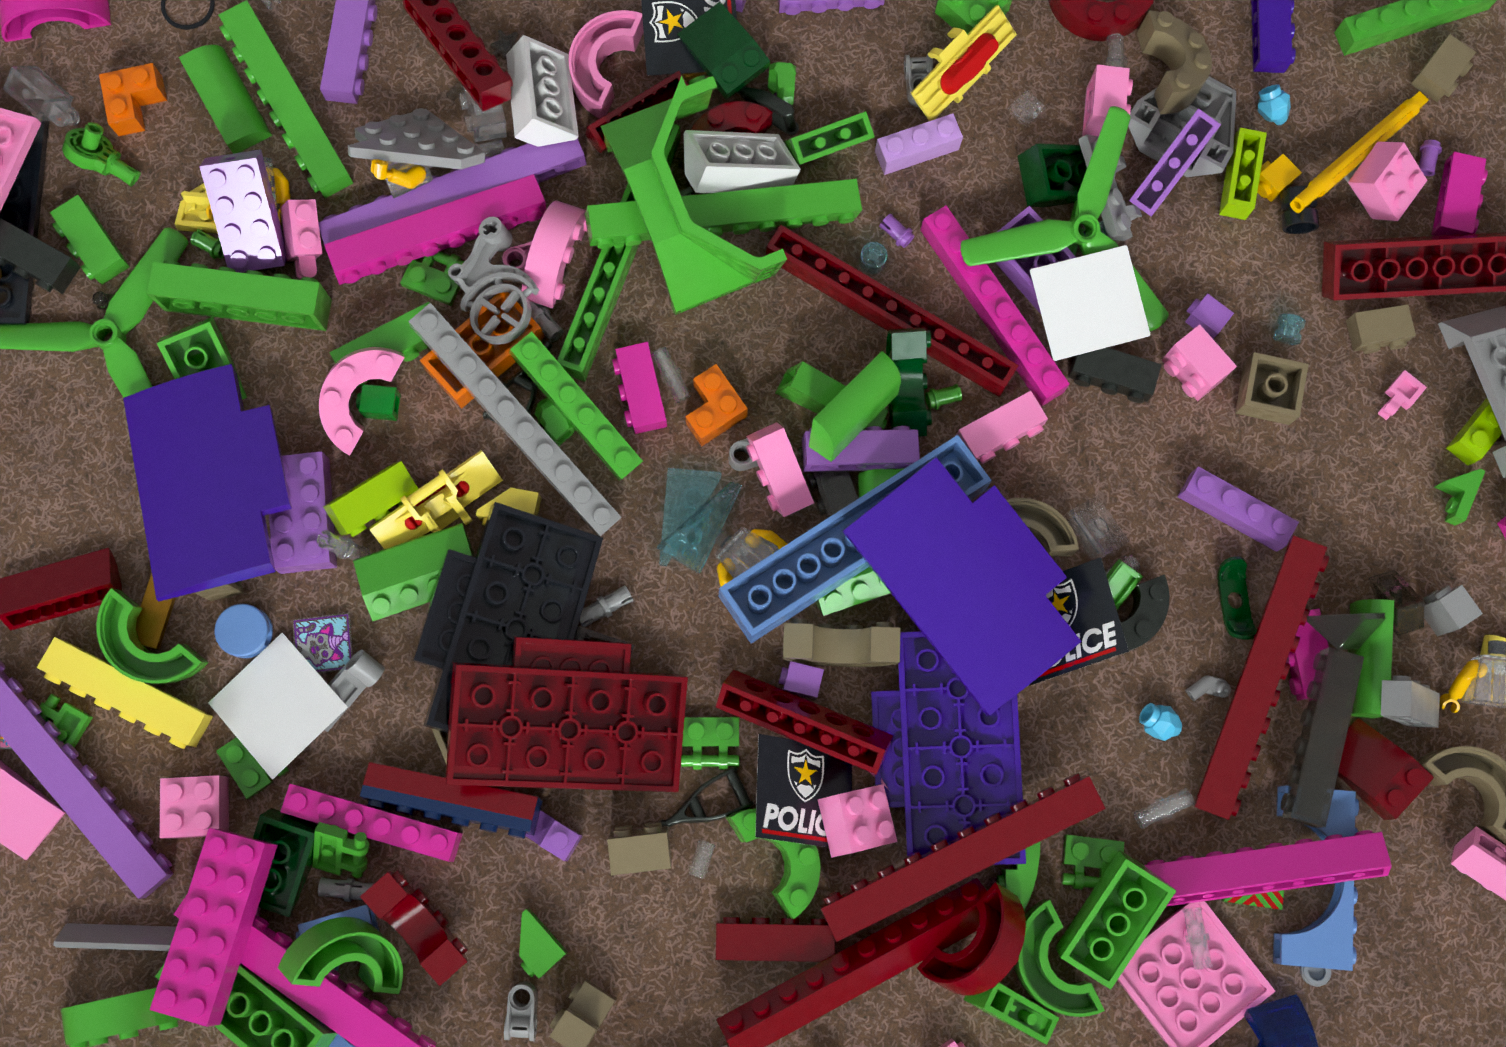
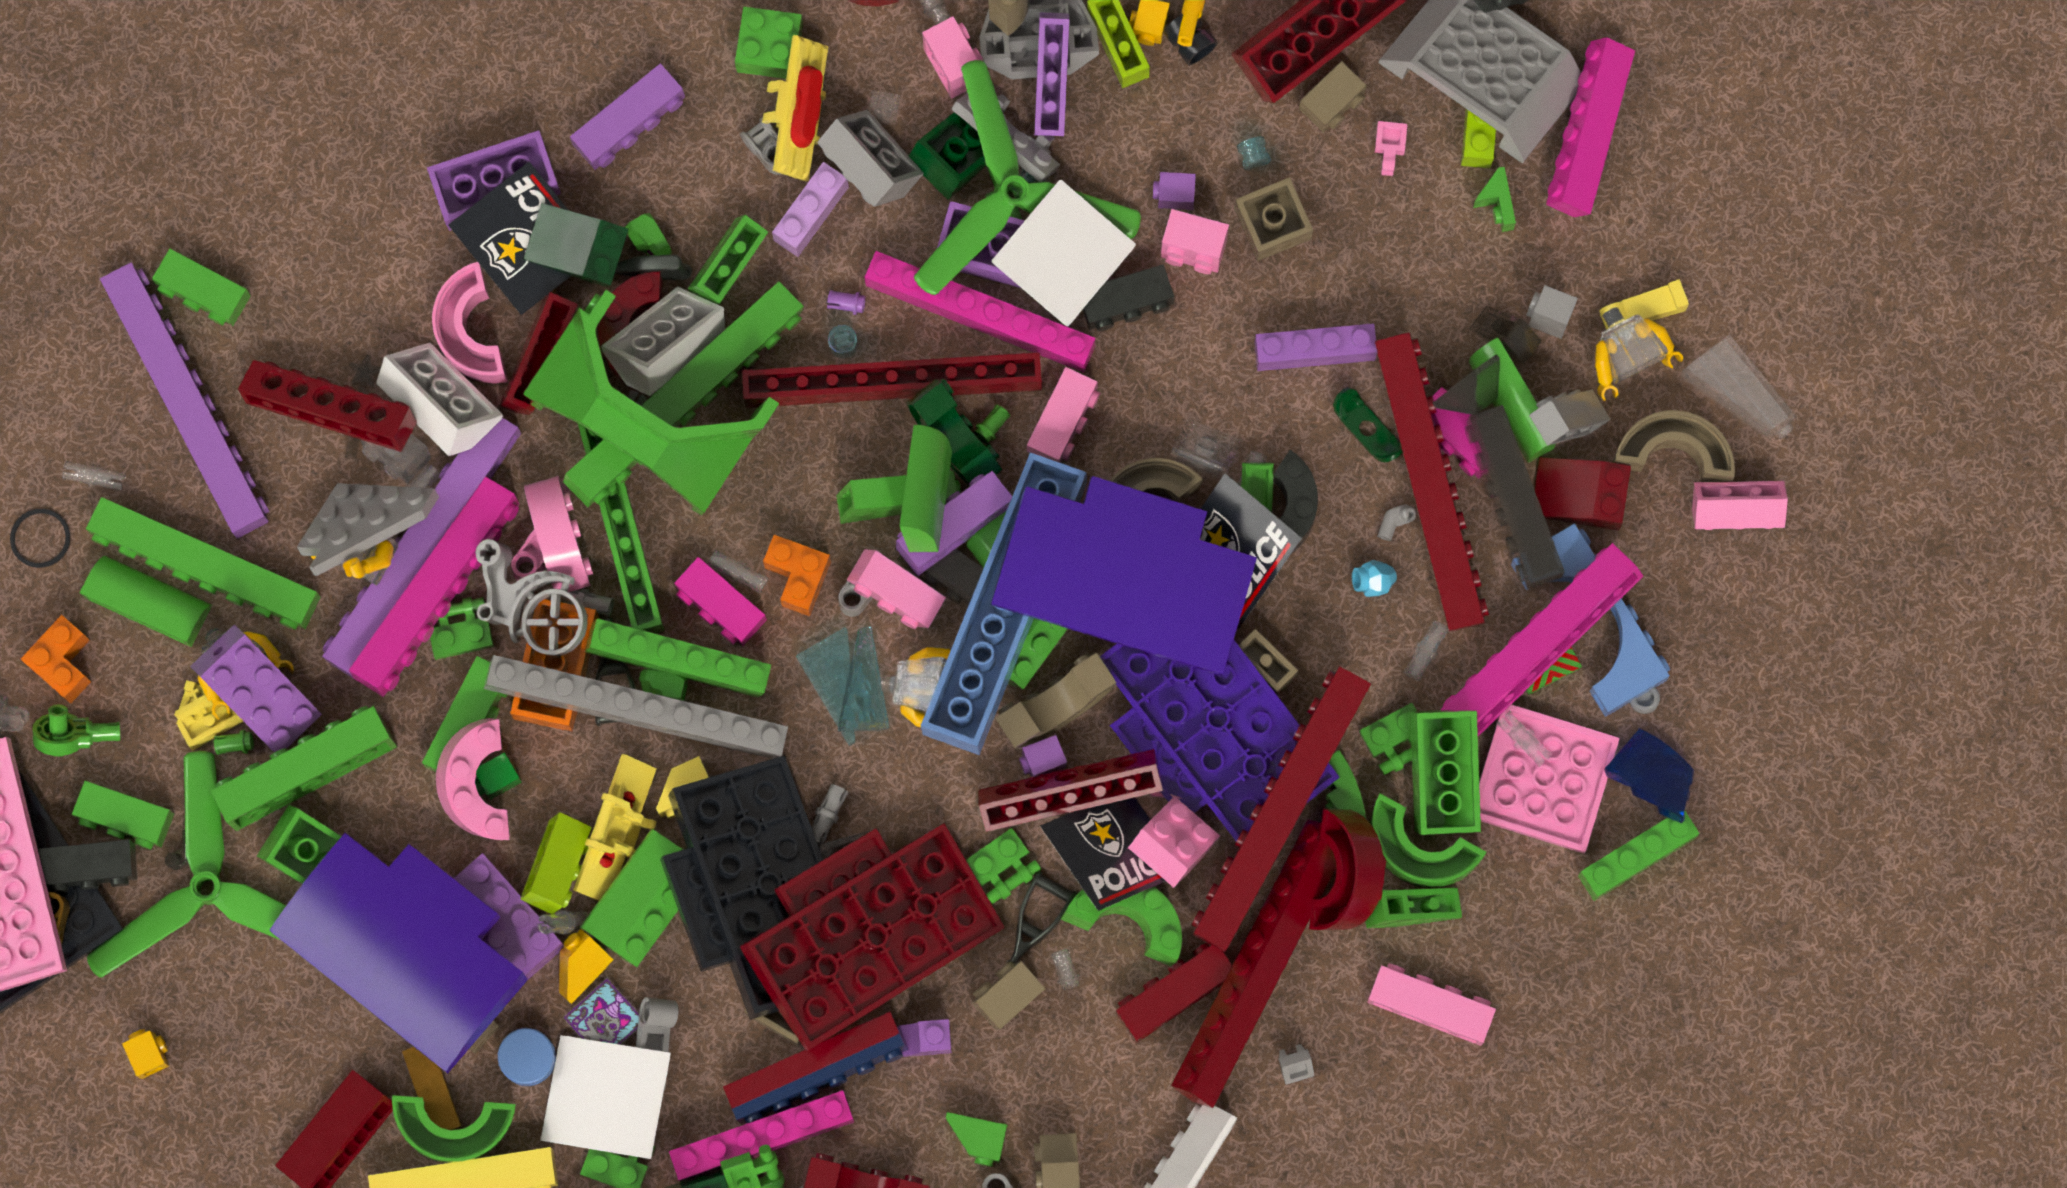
camera: 30 degrees left, 0 degrees up
(301, 235) = (317, 678): bright pink brick -> none
(334, 589) = (580, 964): none -> yellow slope
(990, 134) = (870, 158): none -> light grey brick
(1032, 729) = (1268, 661): none -> dark tan brick

